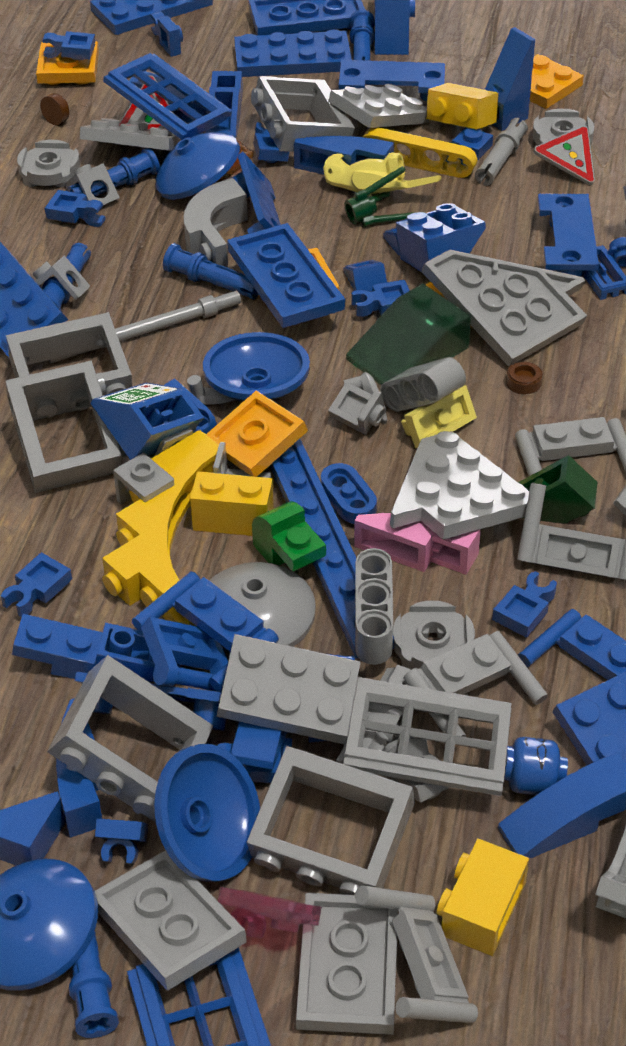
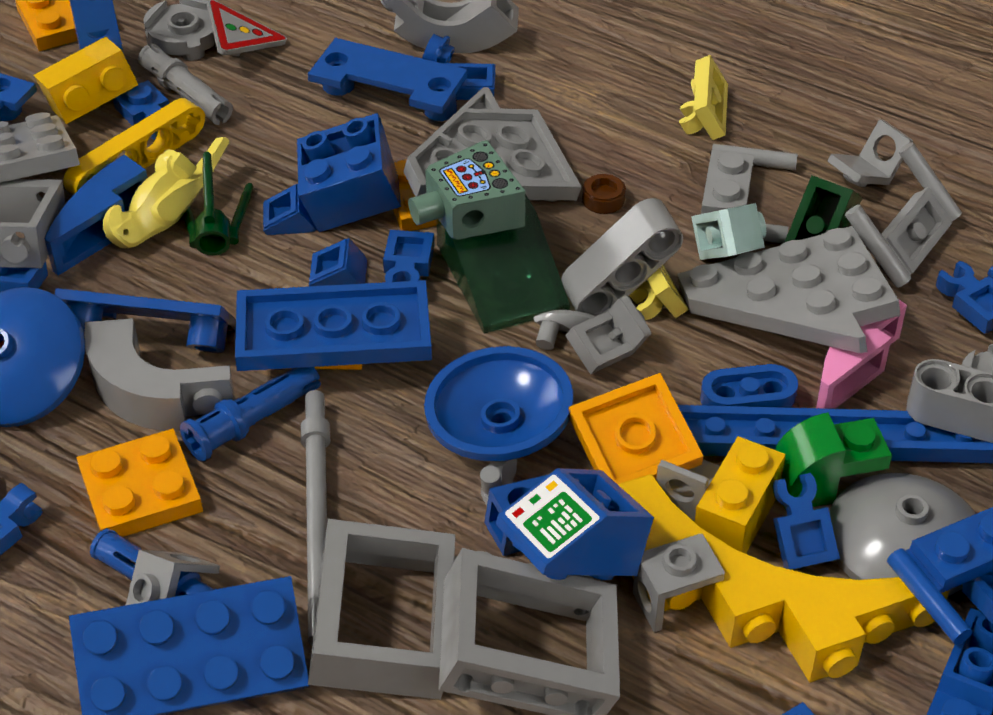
camera: 70 degrees left, 0 degrees up
(131, 252) = (140, 484): none -> light orange plate
(219, 540) = (804, 533): none -> blue plate
(422, 283) = (471, 194): none -> sand green torso
(494, 436) = (729, 231): none -> light aqua slope

